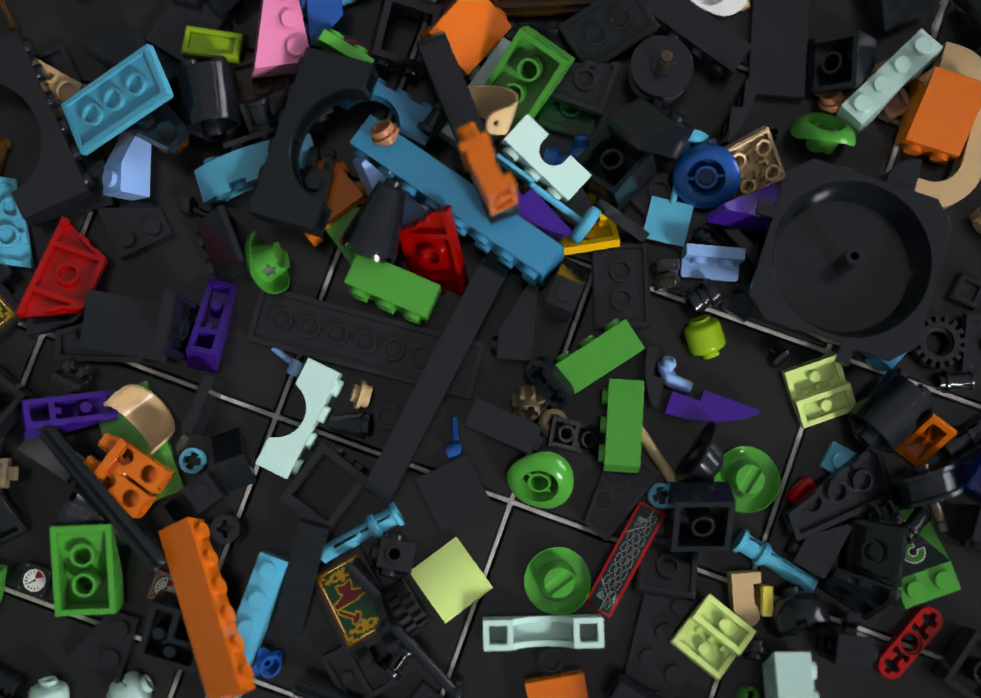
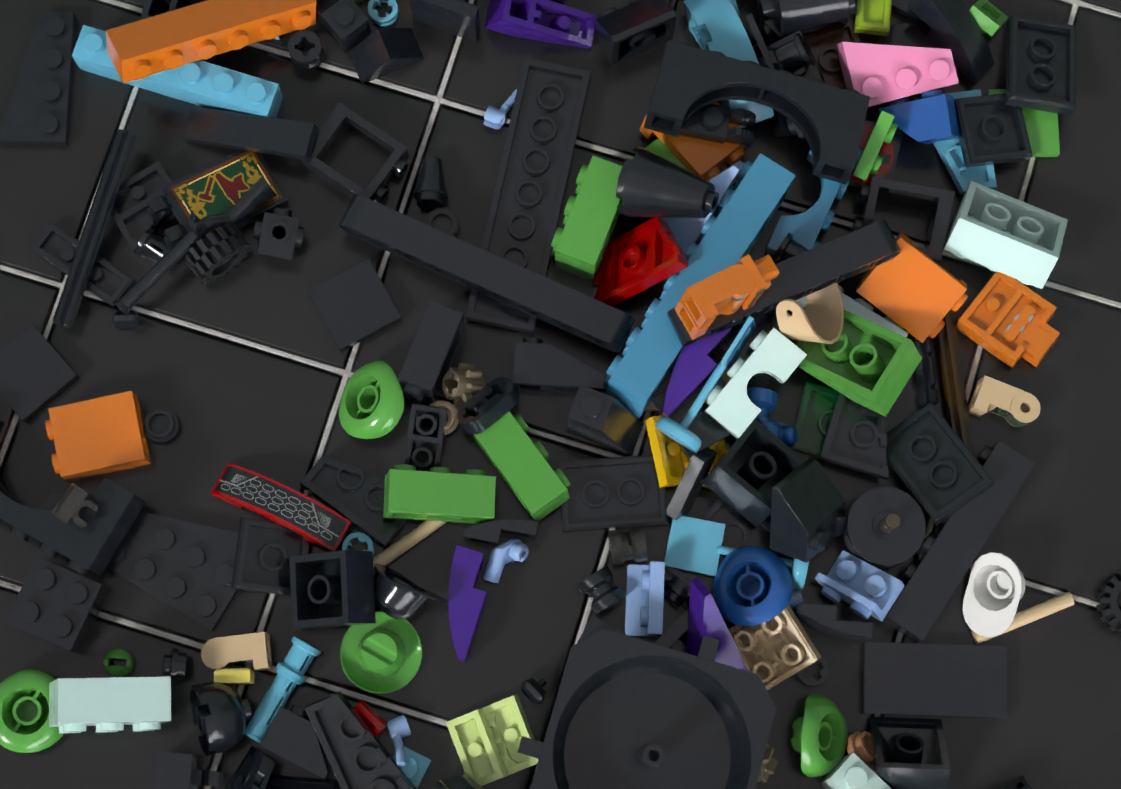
camera: 90 degrees right, 5 degrees down
(267, 264) = (612, 73): bright green hat -> none
(273, 666) = (147, 109): blue plate -> none
(284, 453) = (473, 141): light aqua arch -> none
(361, 394) = (466, 191): tan plate -> none
(373, 526) = (311, 213): medium azure pin -> none
(384, 133) = (771, 189): nougat plate -> none
(451, 579) = (252, 305): yellowish green slope -> none
(454, 448) = (407, 304): blue hand -> none
(519, 632) = (194, 410): light aqua arch -> none
(557, 581) = (253, 429): bright green hat -> none
(704, 336) = (553, 594): lime head -> none
(706, 90) = (861, 585): none -> light blue bracket
(712, 636) = (189, 612): yellowish green slope -> none
(808, 466) = (398, 729): none -> light blue hand

